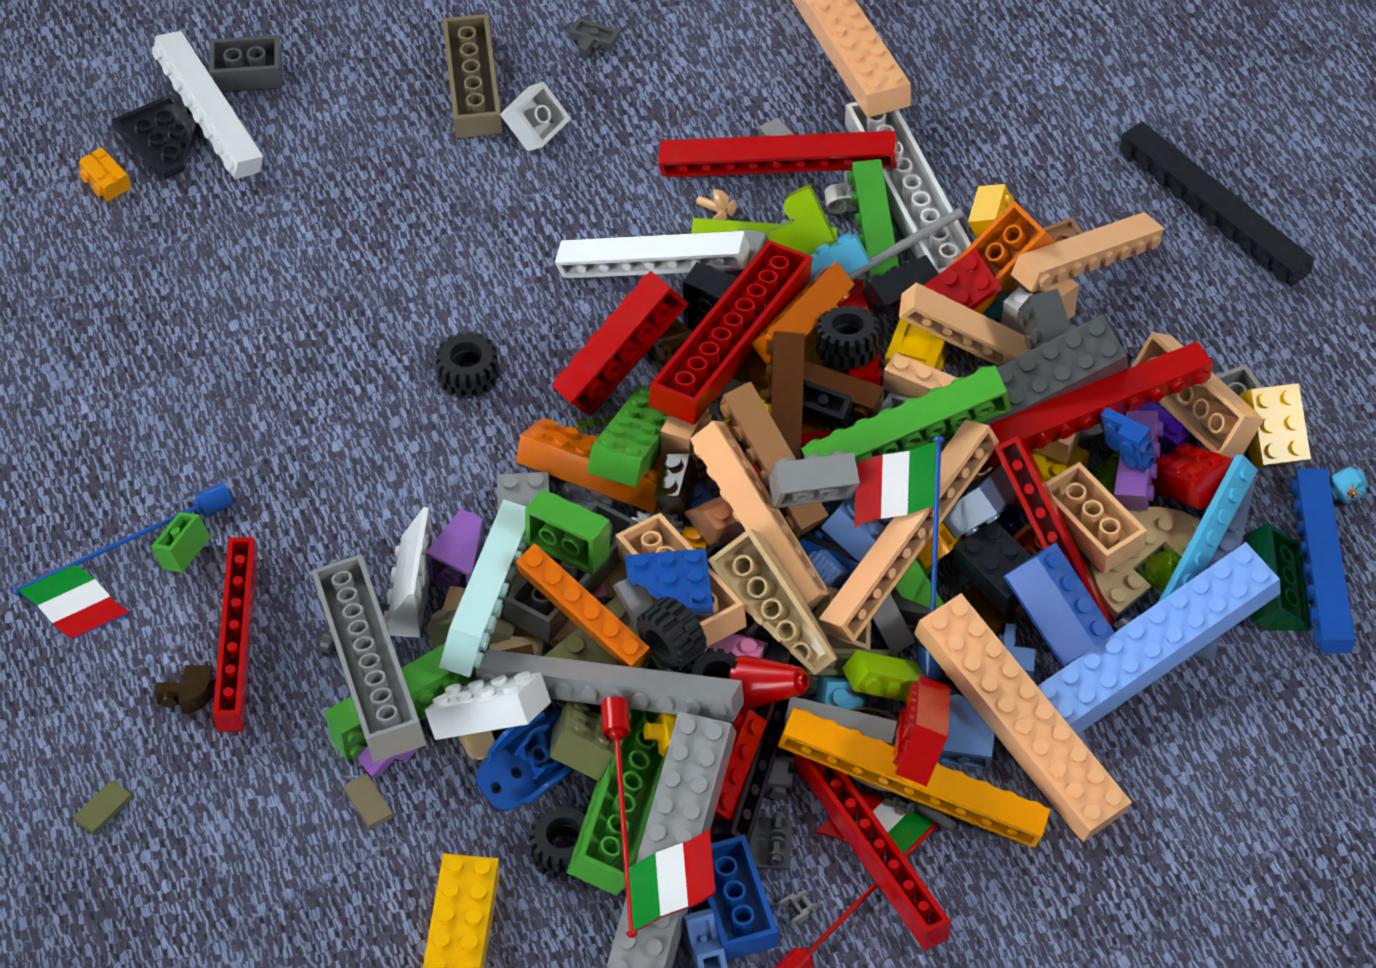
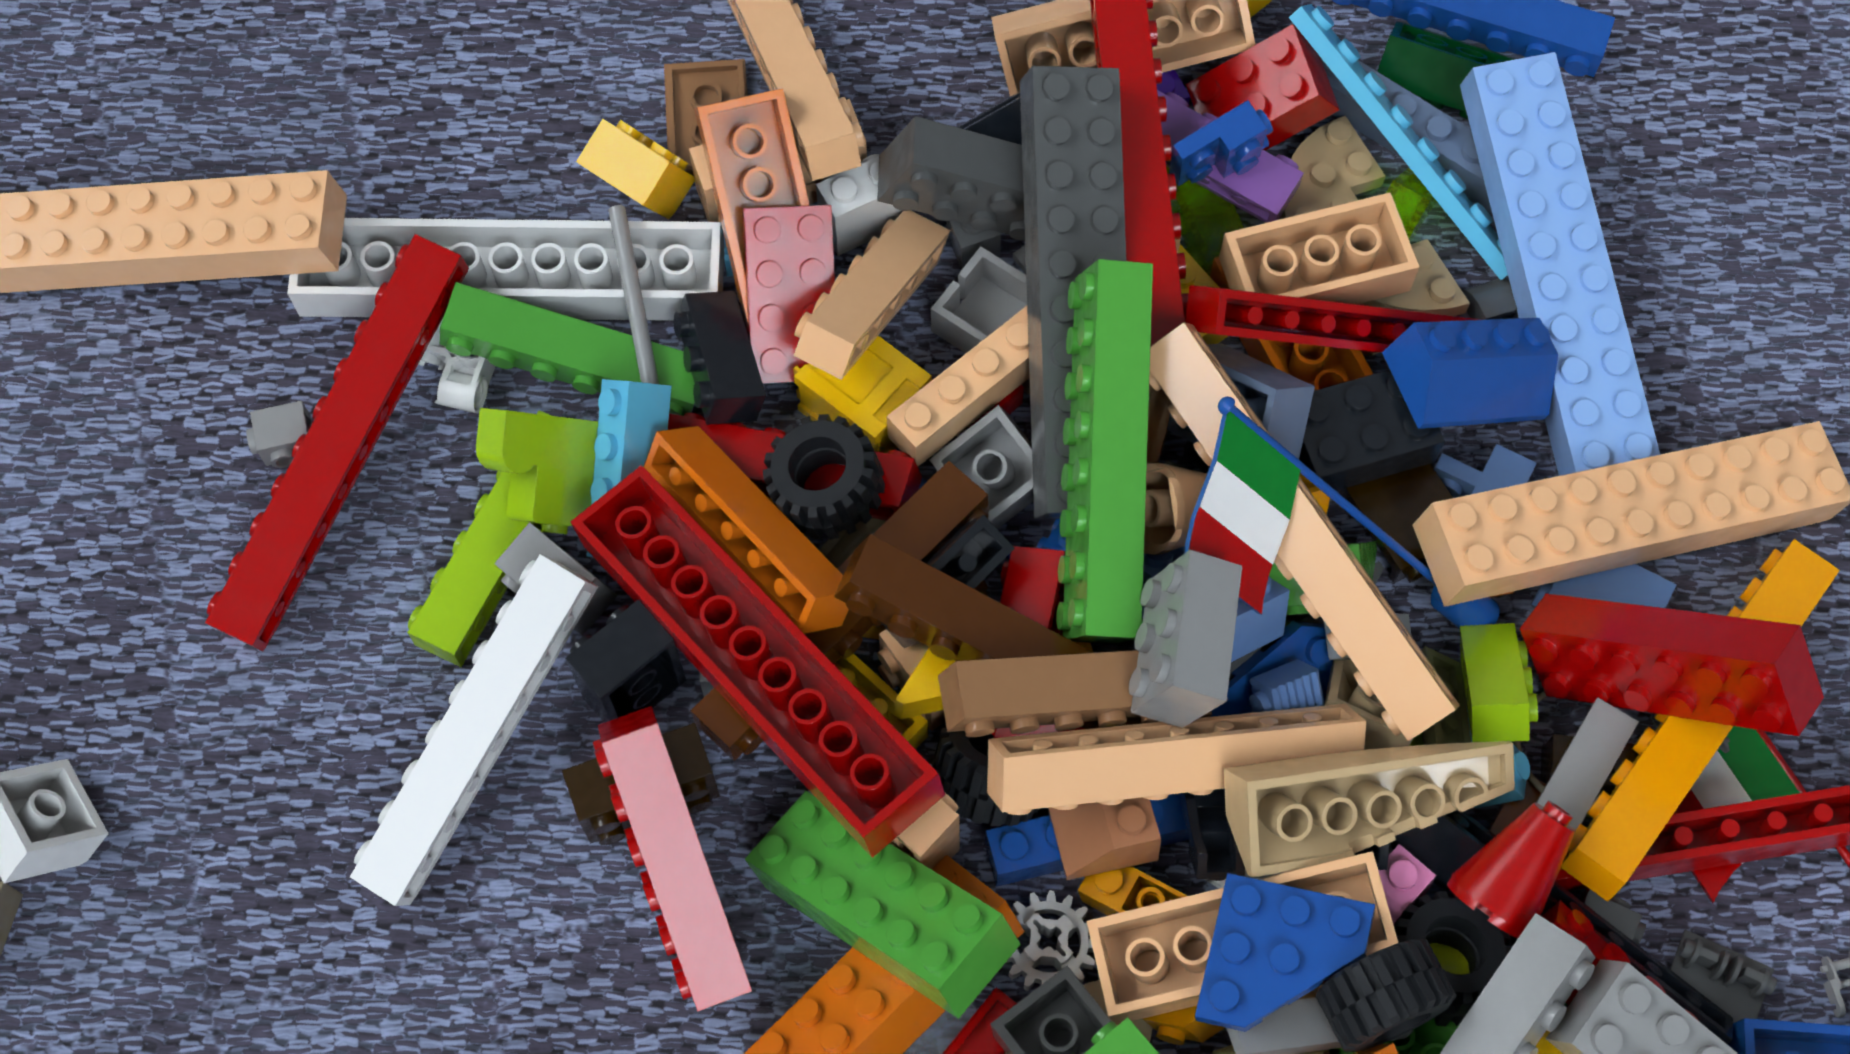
camera: 70 degrees left, 15 degrees up
(580, 424) = (758, 986): clear neon green piece -> none
(676, 483) = (1006, 870): dark brown brick -> none
(720, 204) = (392, 575): light nougat plant -> none

